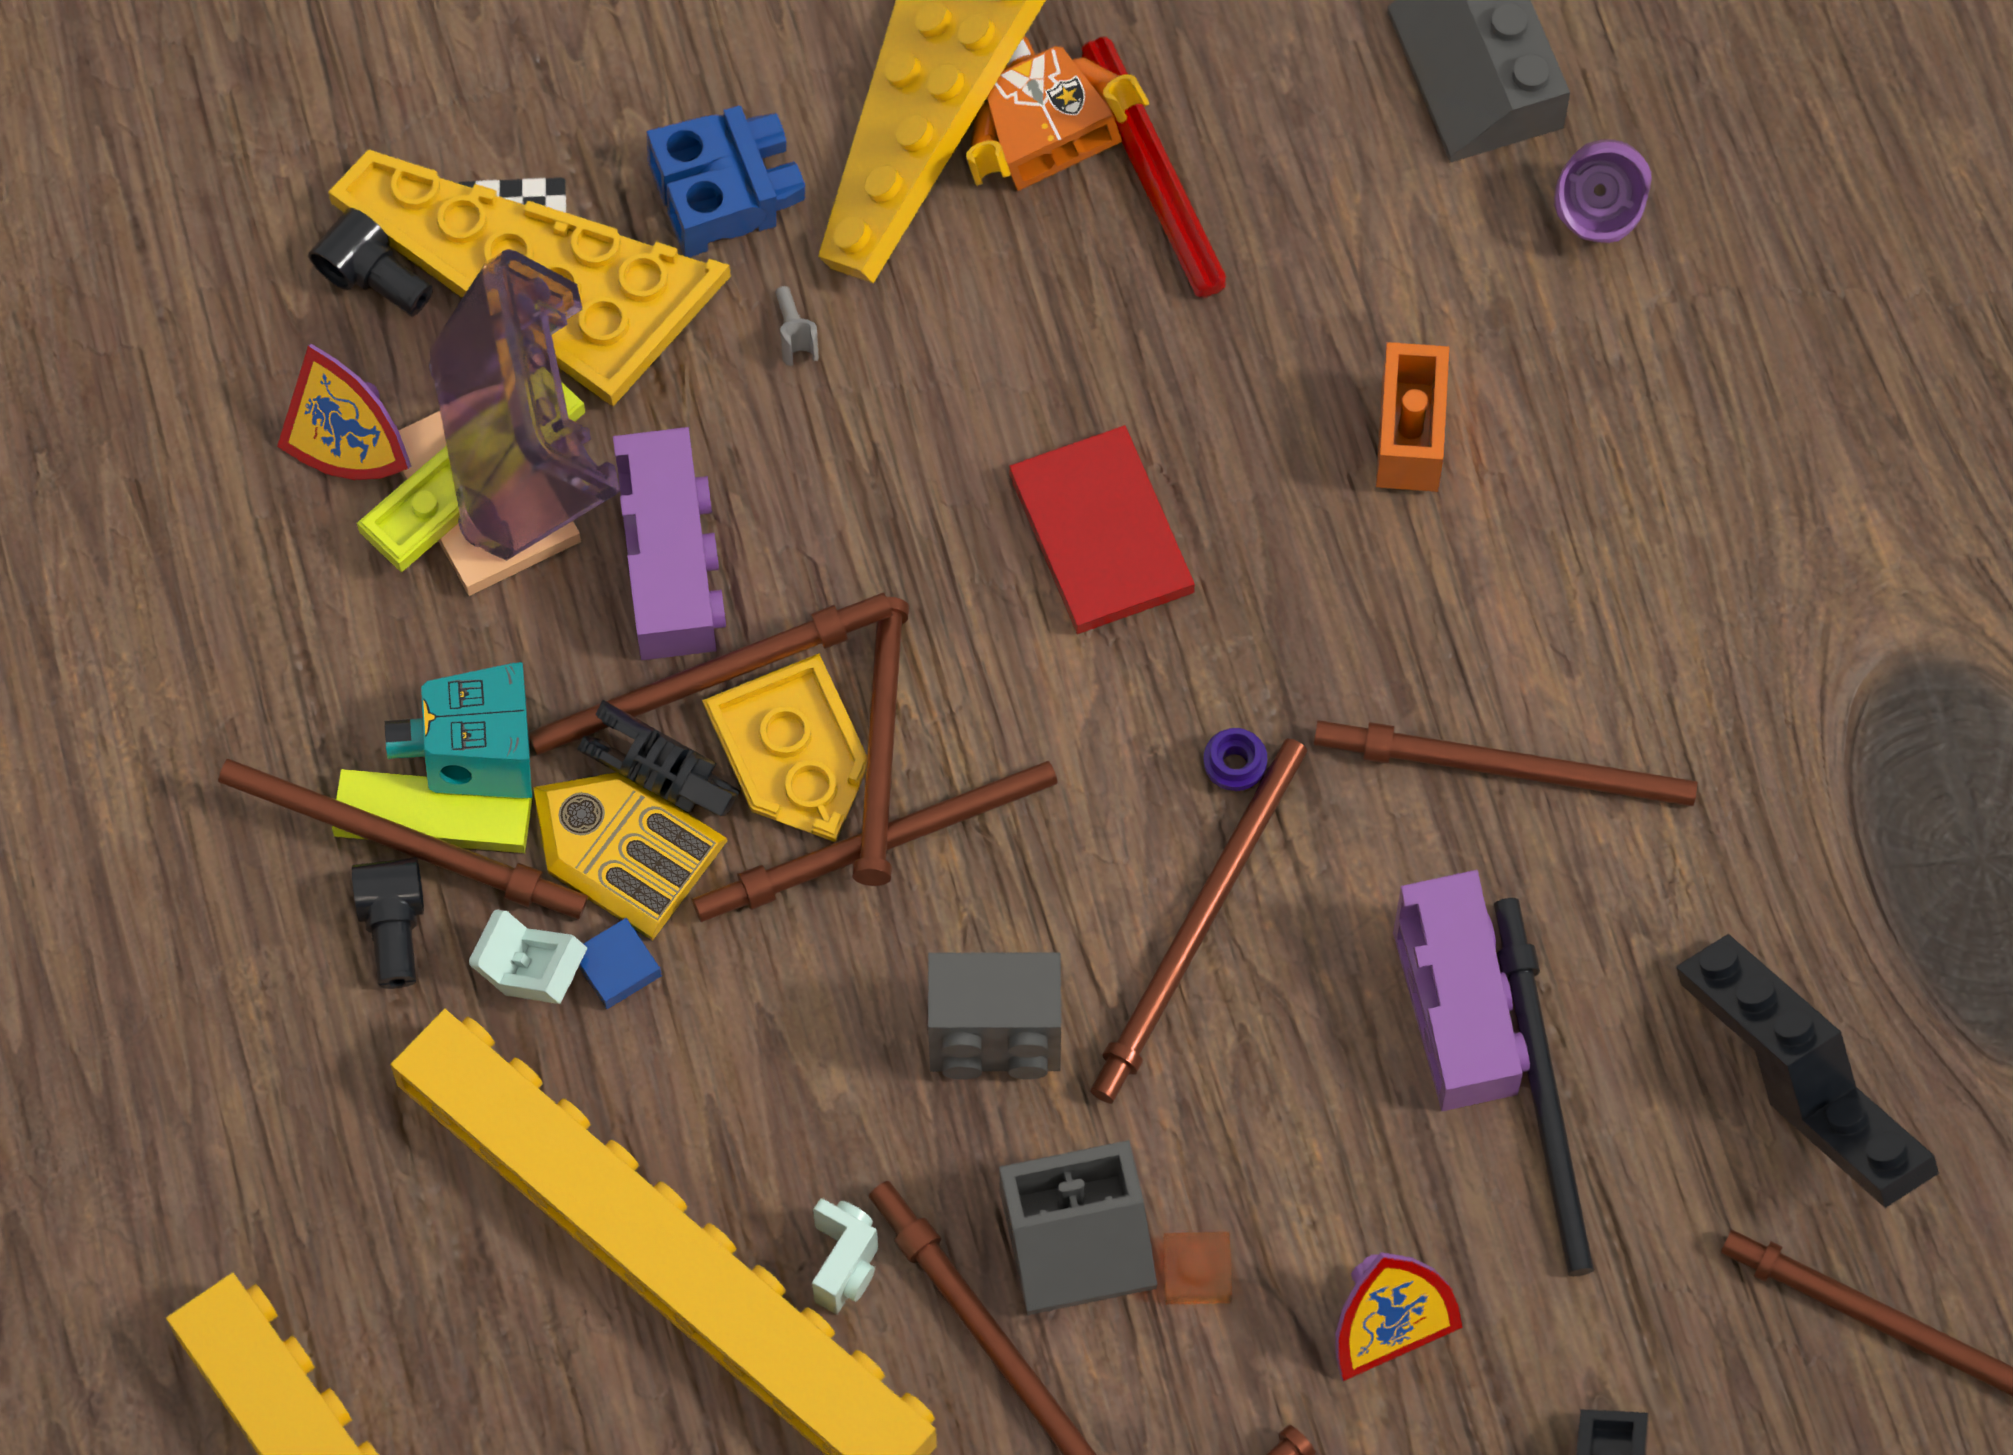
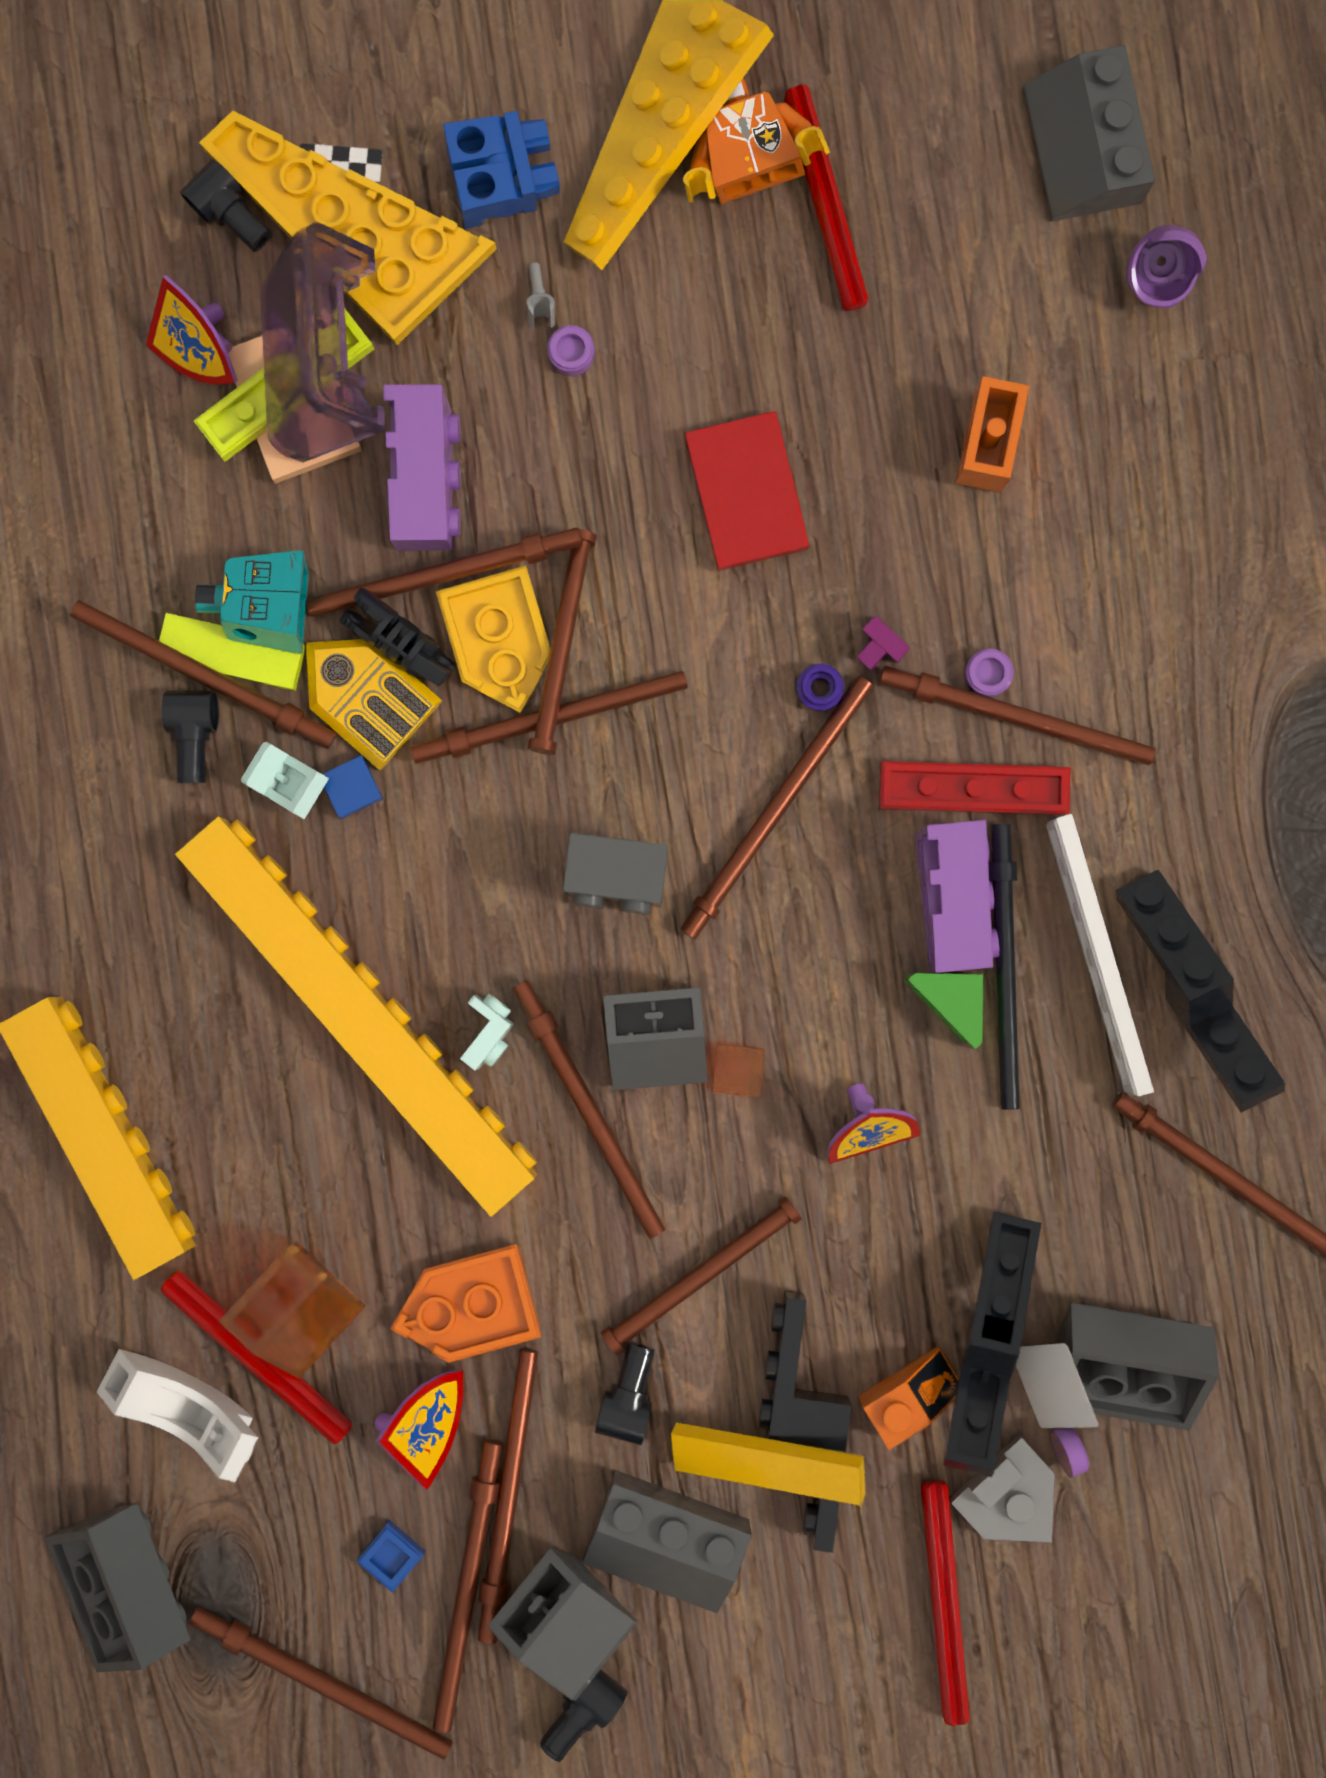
camera: 10 degrees right, 20 degrees up
(844, 386) = (571, 350): none -> medium lavender tile
(1309, 692) = (883, 642): none -> magenta tile
(1459, 714) = (988, 672): none -> medium lavender tile
(1475, 1131) = (955, 1000): none -> bright green slope
(1506, 859) = (974, 788): none -> red tile
(1667, 1052) = (1099, 956): none -> white tile

